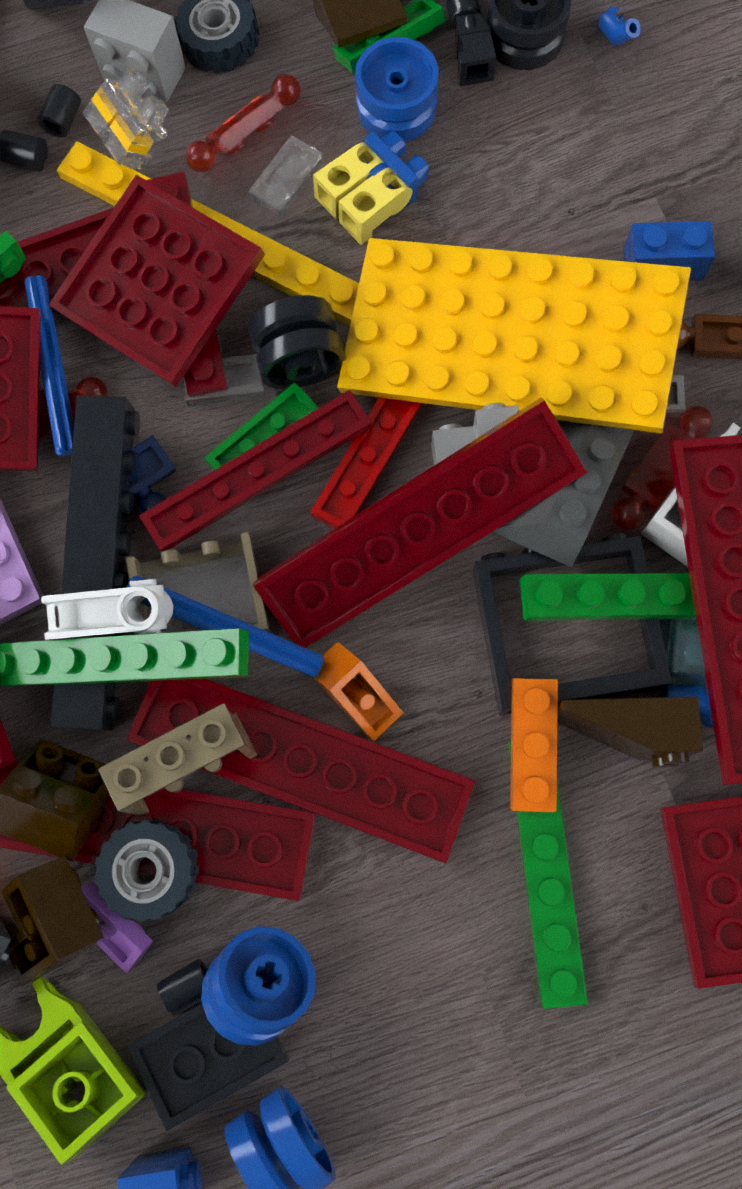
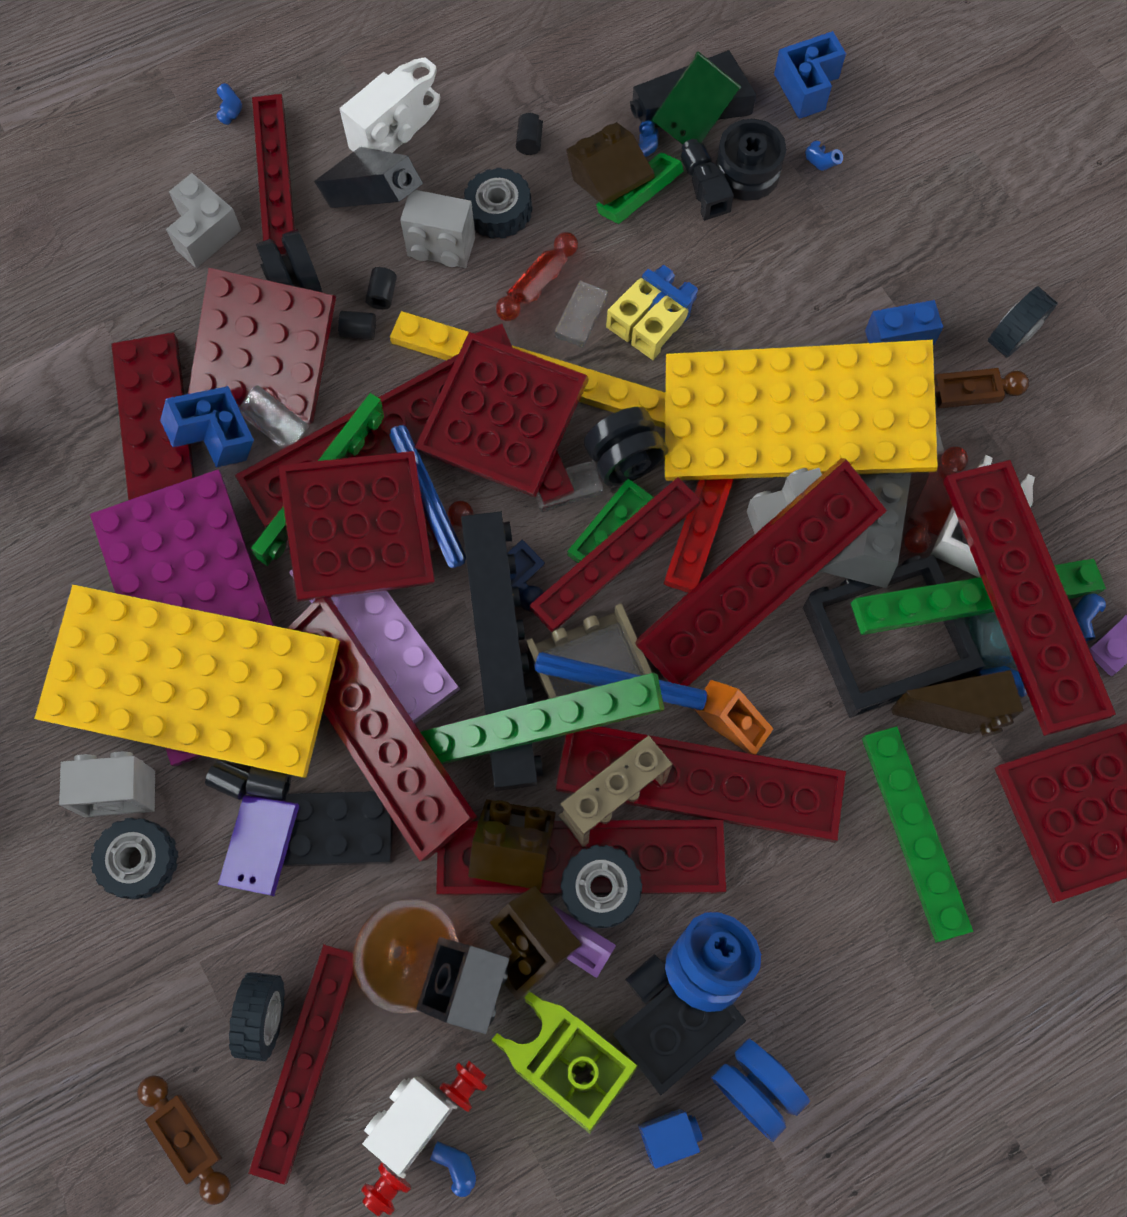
camera: 15 degrees left, 5 degrees down
(108, 611) = (525, 684): white piece -> none
(126, 120) = (442, 289): clear hips -> none
(396, 88) = (658, 231): blue wheel -> none
(534, 745) = (887, 732): orange plate -> none

